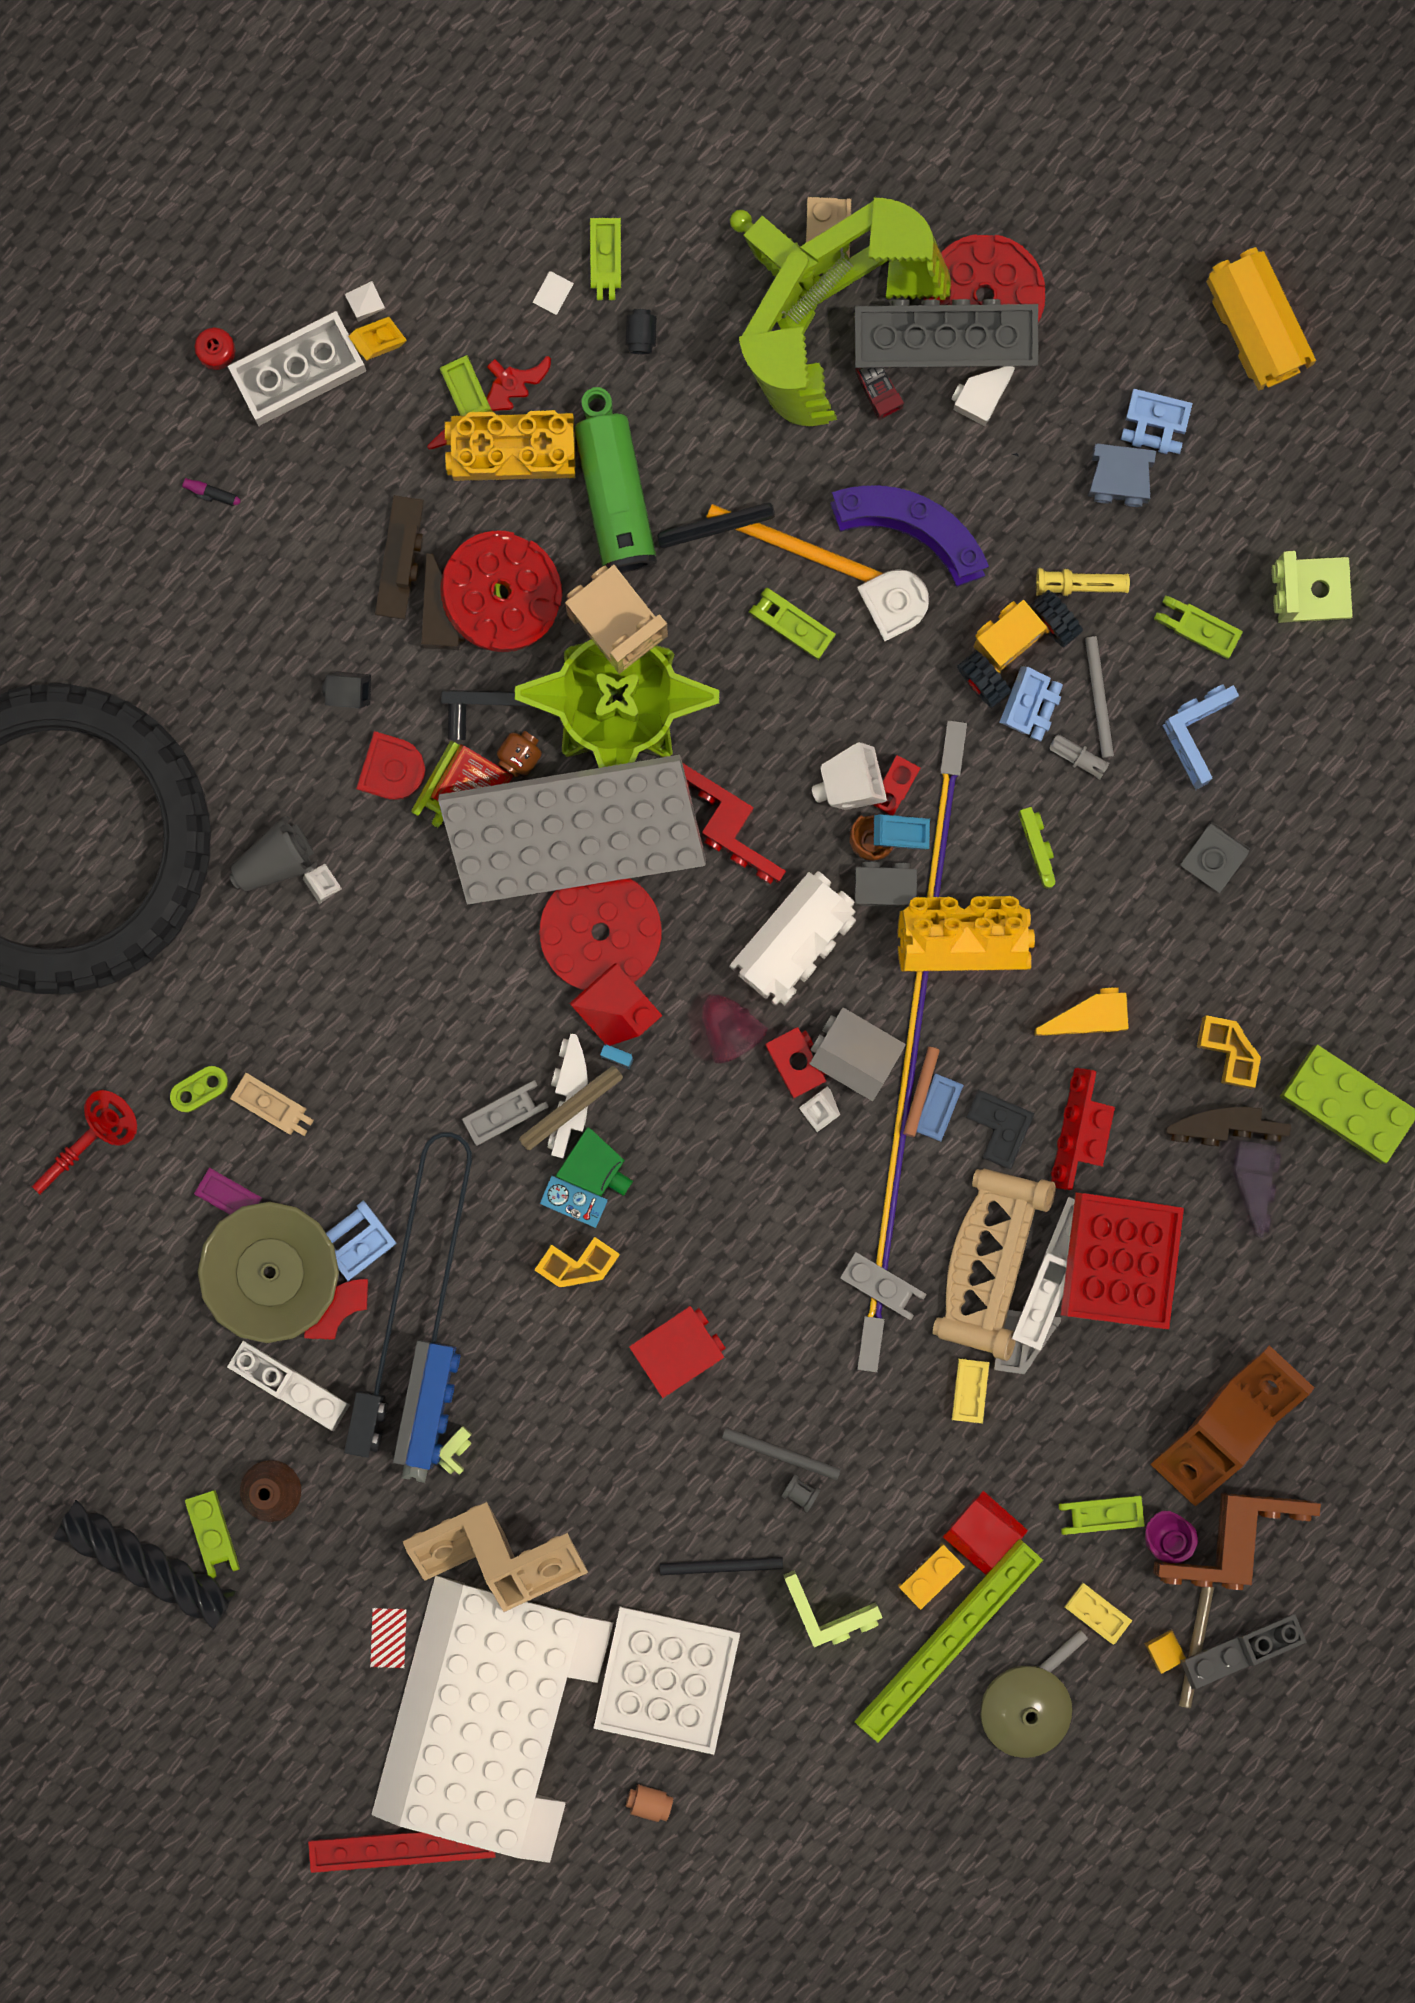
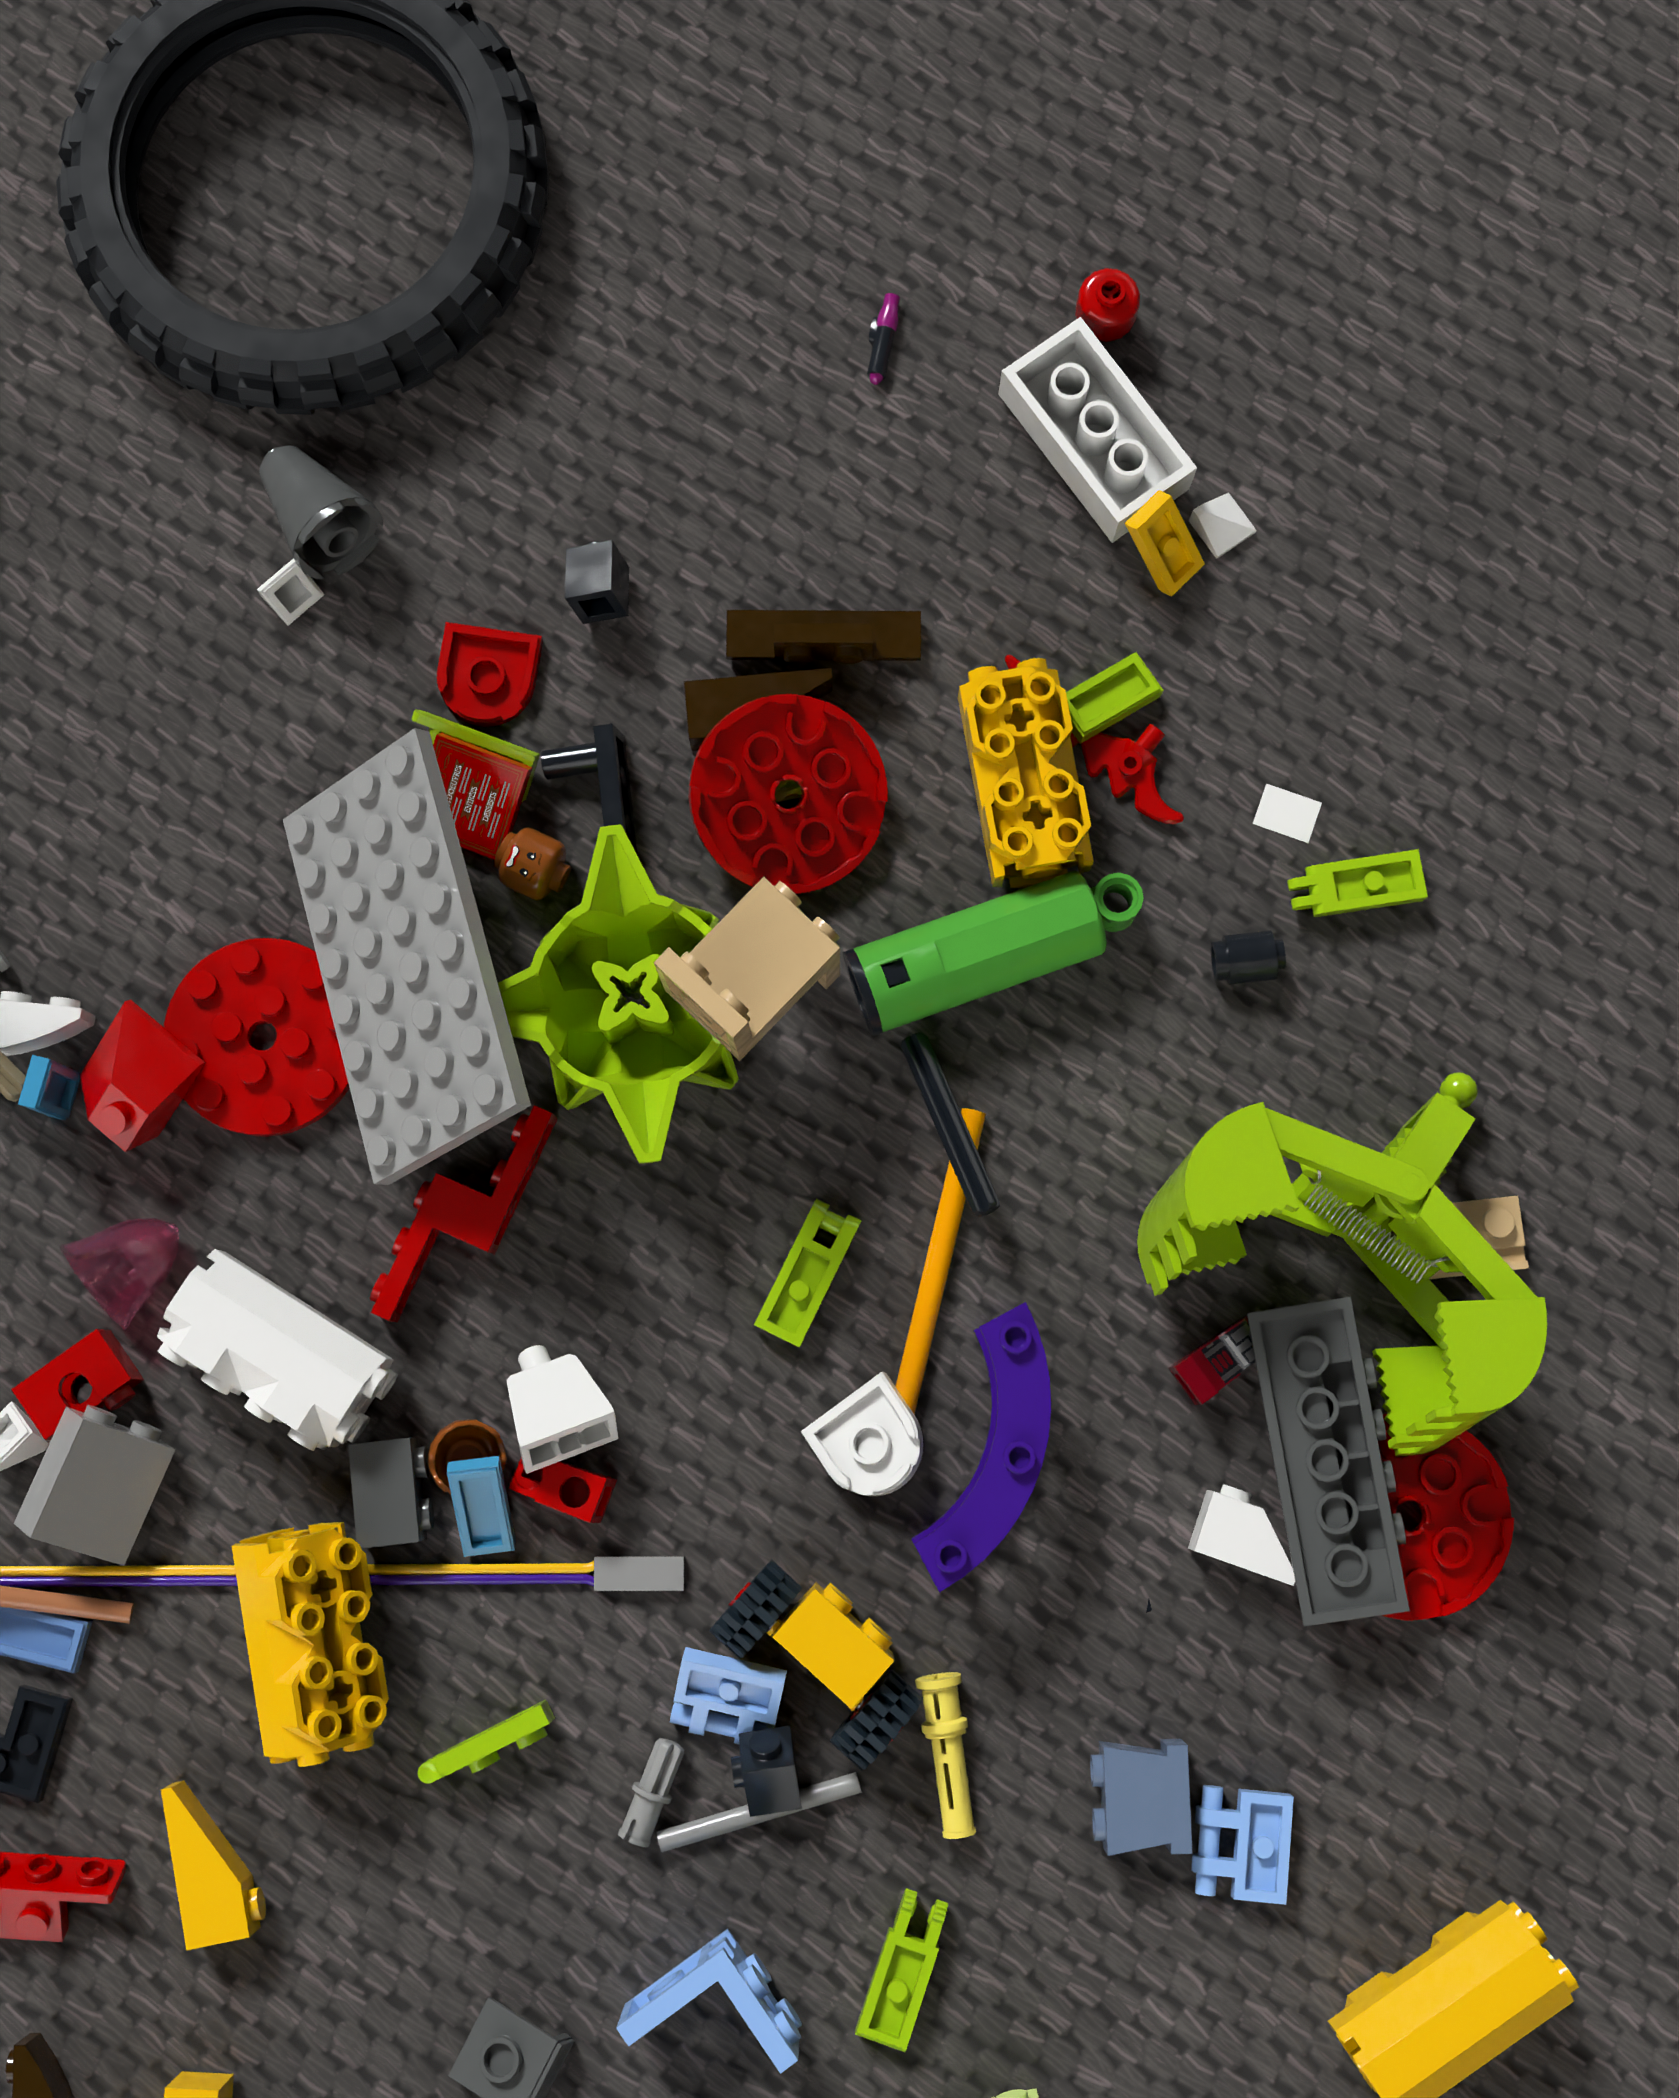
camera: 85 degrees right, 5 degrees down
(1076, 685) = (767, 1771): none -> black brick

